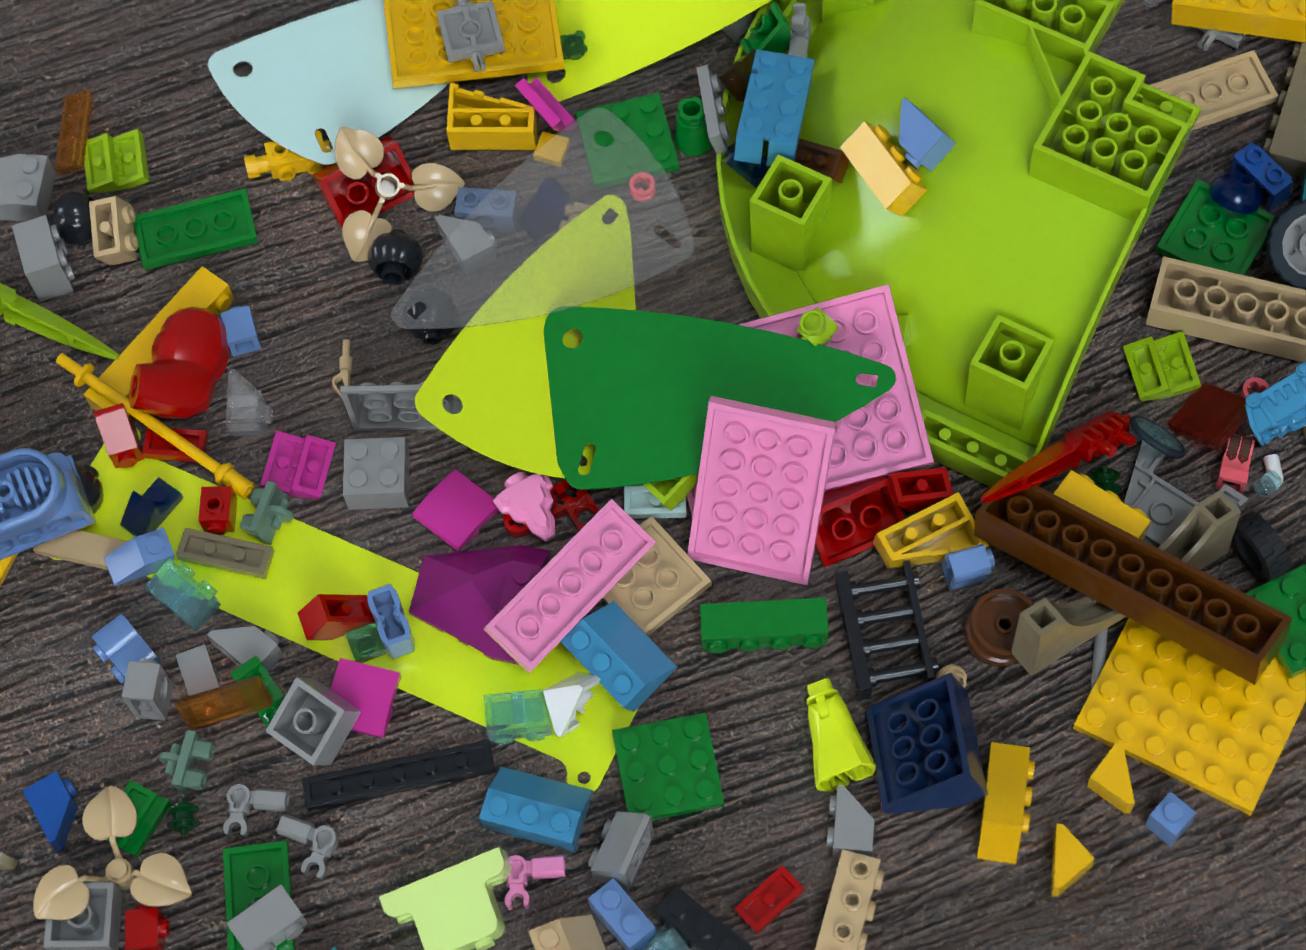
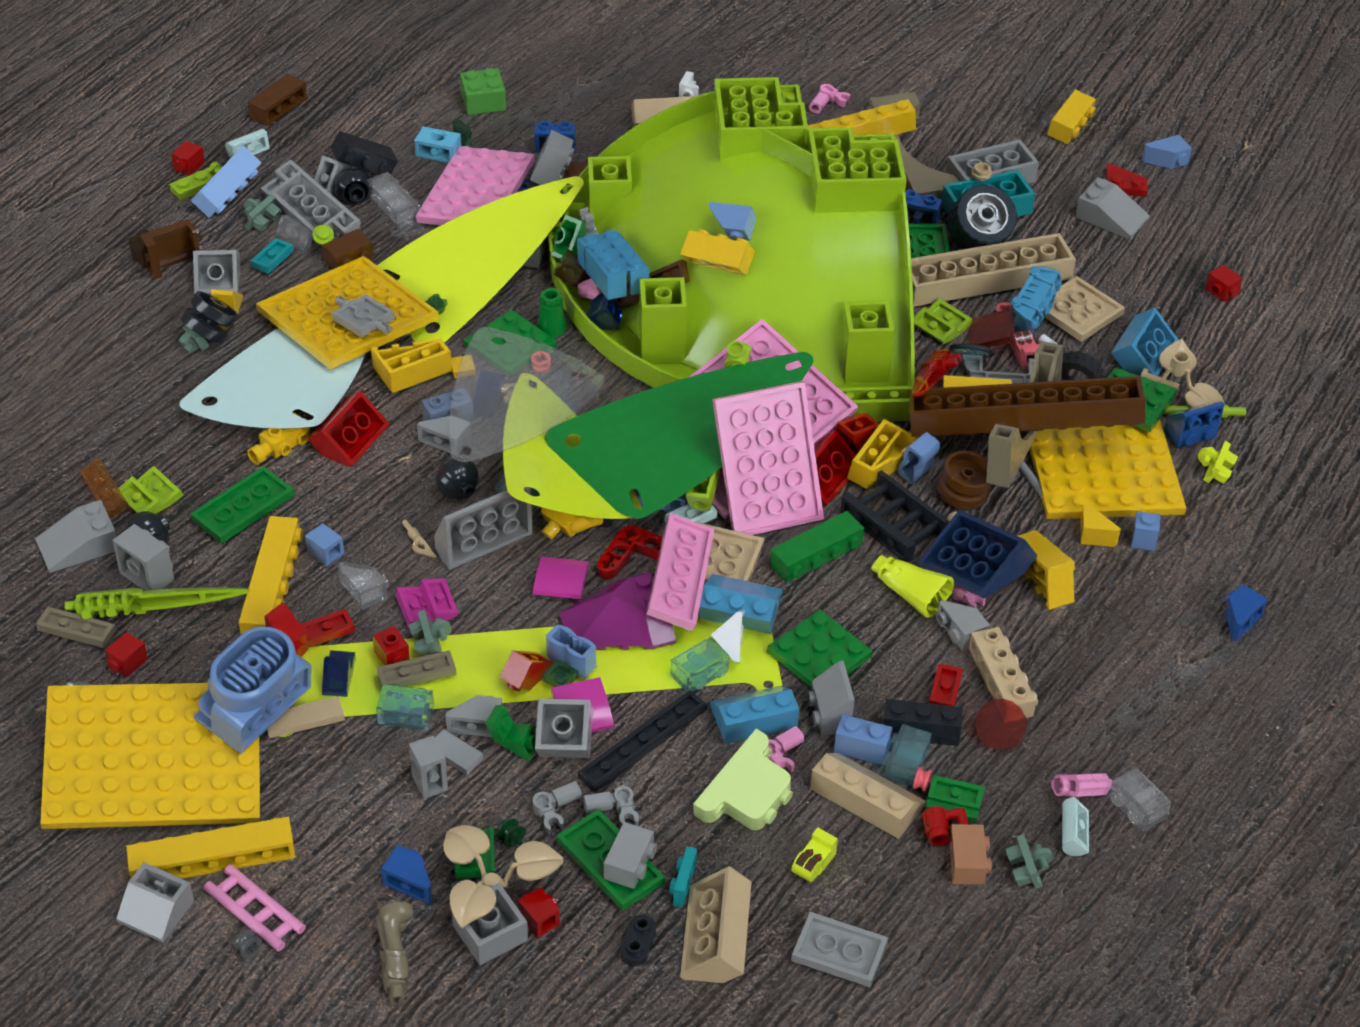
camera: 40 degrees left, 20 degrees down
(113, 230) = (185, 524): tan brick -> none
(121, 644) = (386, 758): medium blue brick -> none
(139, 557) = (358, 696): medium blue slope -> none
(182, 761) = (484, 800): sand green hips -> none
(185, 367) = (303, 573): red piece -> none
(224, 473) = (378, 624): yellow bar -> none
(224, 702) = (491, 747): clear orange tile -> none
(360, 152) = (399, 414): tan plant -> none
(376, 473) = (489, 579): light grey brick -> none
(391, 255) = (405, 457): black plant -> none
(529, 503) = (611, 546): bright pink rock -> none
(545, 104) = (450, 336): dark pink slope -> none
(713, 109) = (570, 295): light grey plate -> none
(1069, 860) = (1103, 578): yellow slope -> none
(1236, 192) = (918, 217): clear blue piece -> none

